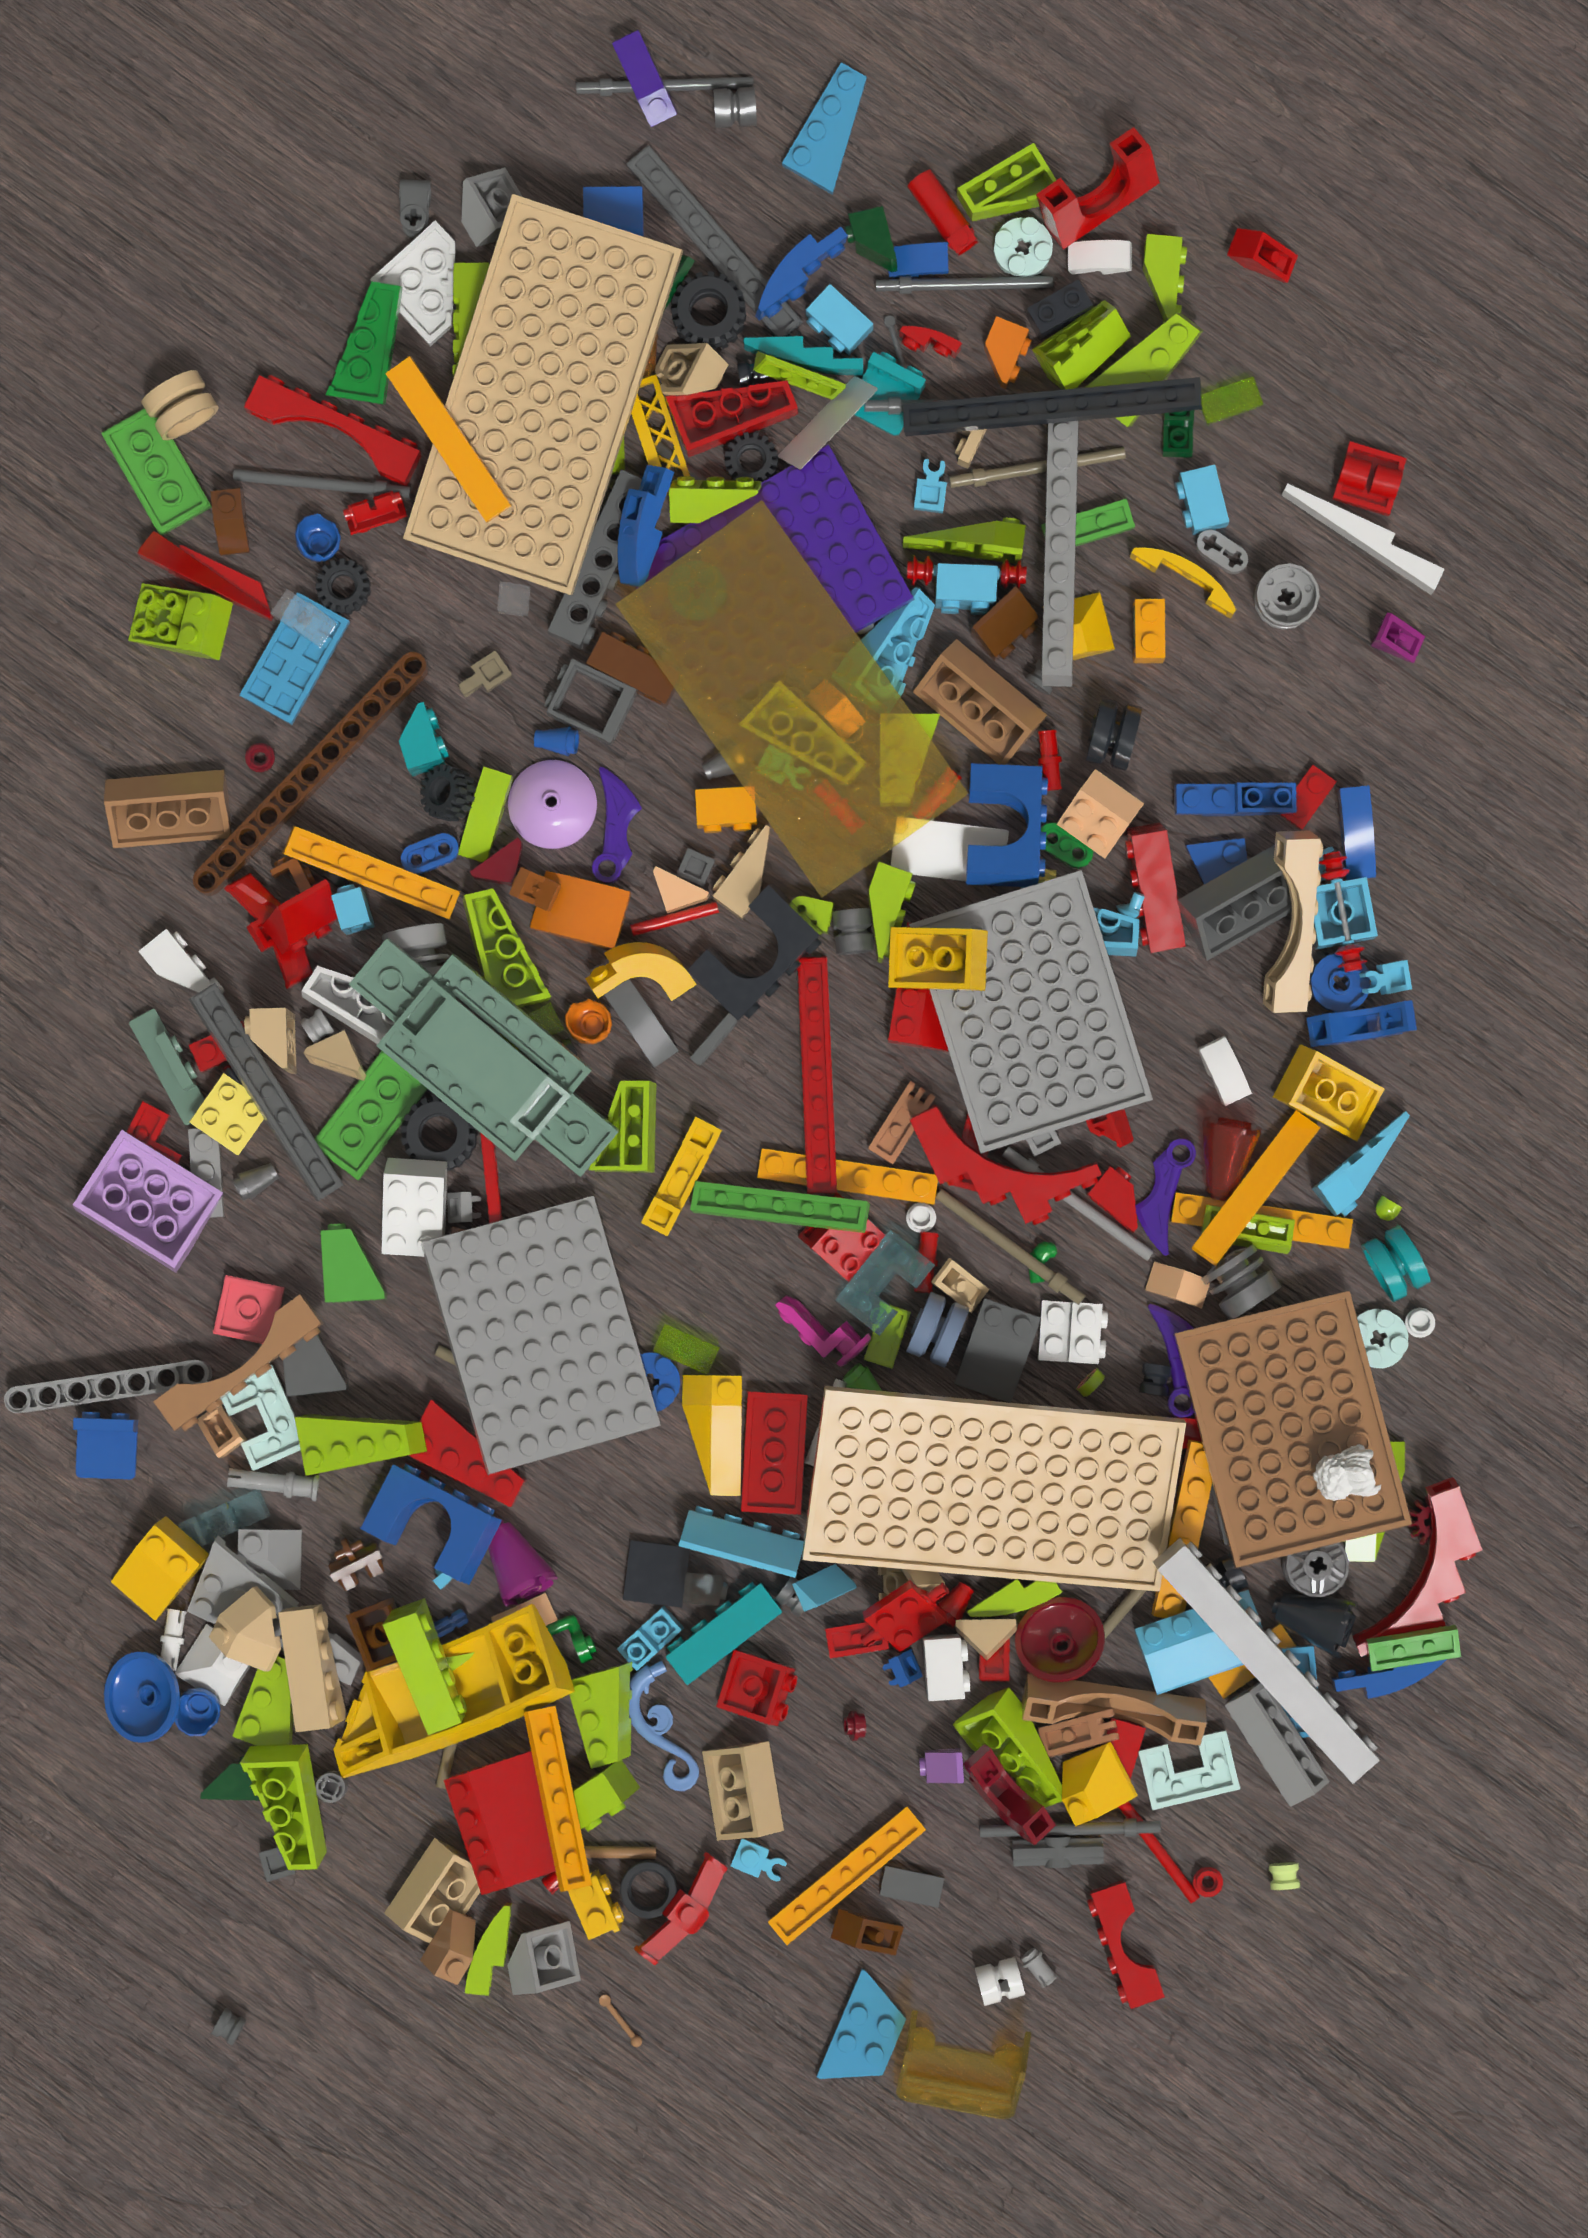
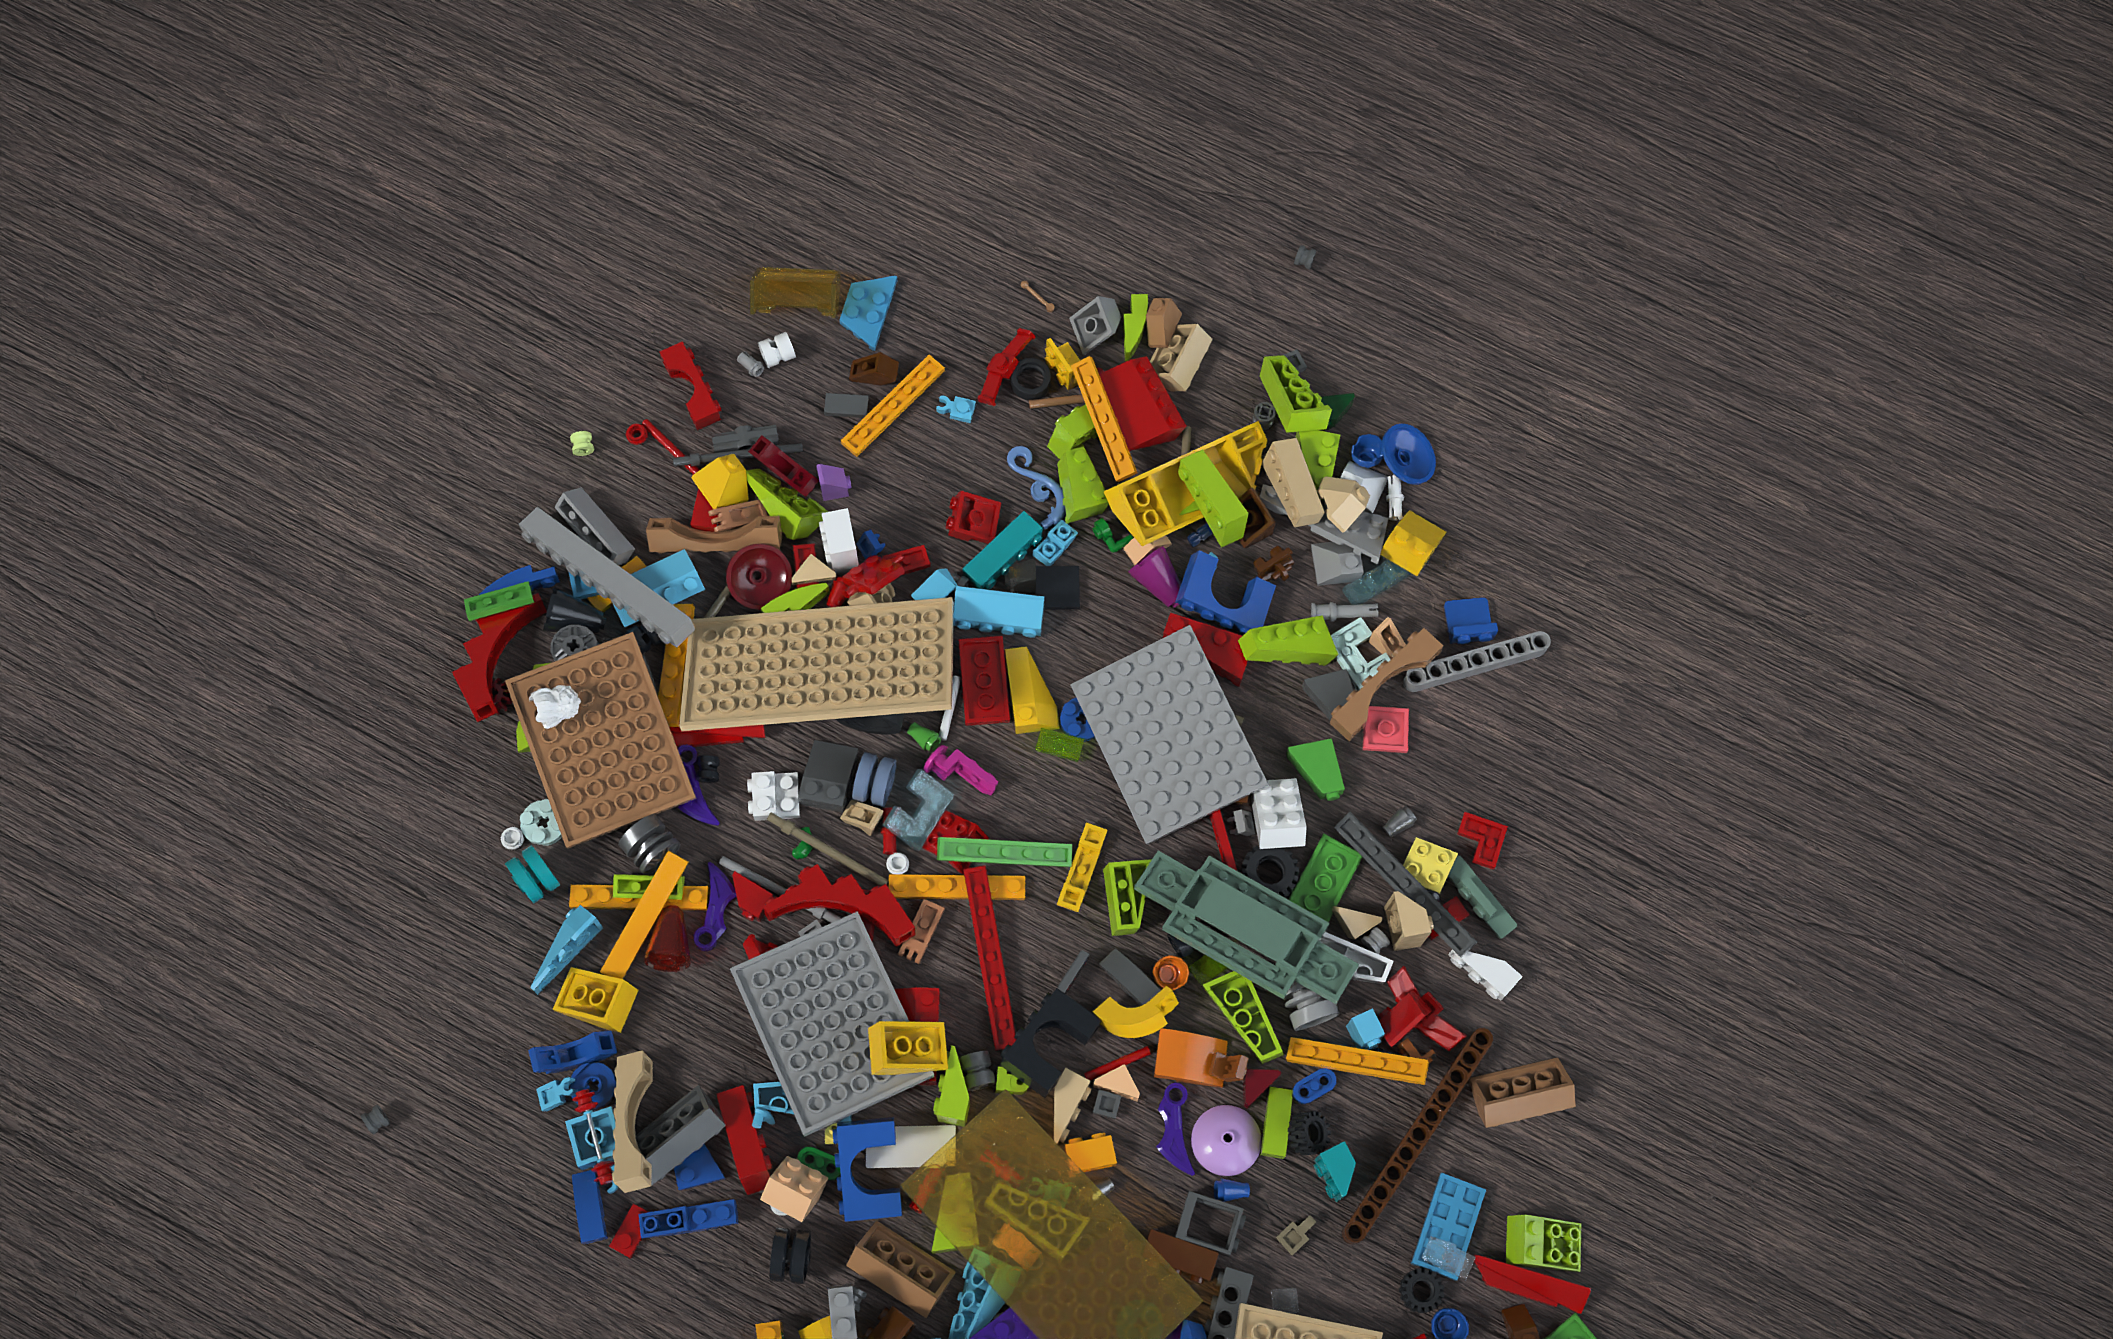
camera: 165 degrees right, 15 degrees down
(148, 1201) = (1476, 793): lavender slope -> none
(206, 1163) = (1436, 819): light grey plate -> none
(258, 748) = (1466, 1143): dark red plate -> none
(743, 1791) = (973, 449): tan slope -> none
(855, 1725) = (900, 503): dark red plate -> none
(884, 1348) = (911, 762): lime plate -> none
(1050, 759) = (839, 1231): red pin -> none
(1090, 1382) = (756, 760): lime tile -> none
(1177, 1284) = (699, 840): light nougat slope -> none
(1211, 1779) = (639, 501): light aqua plate -> none
(1224, 1070) = (677, 1004): white slope -> none
(1387, 1209) = (543, 918): lime hinge -> none

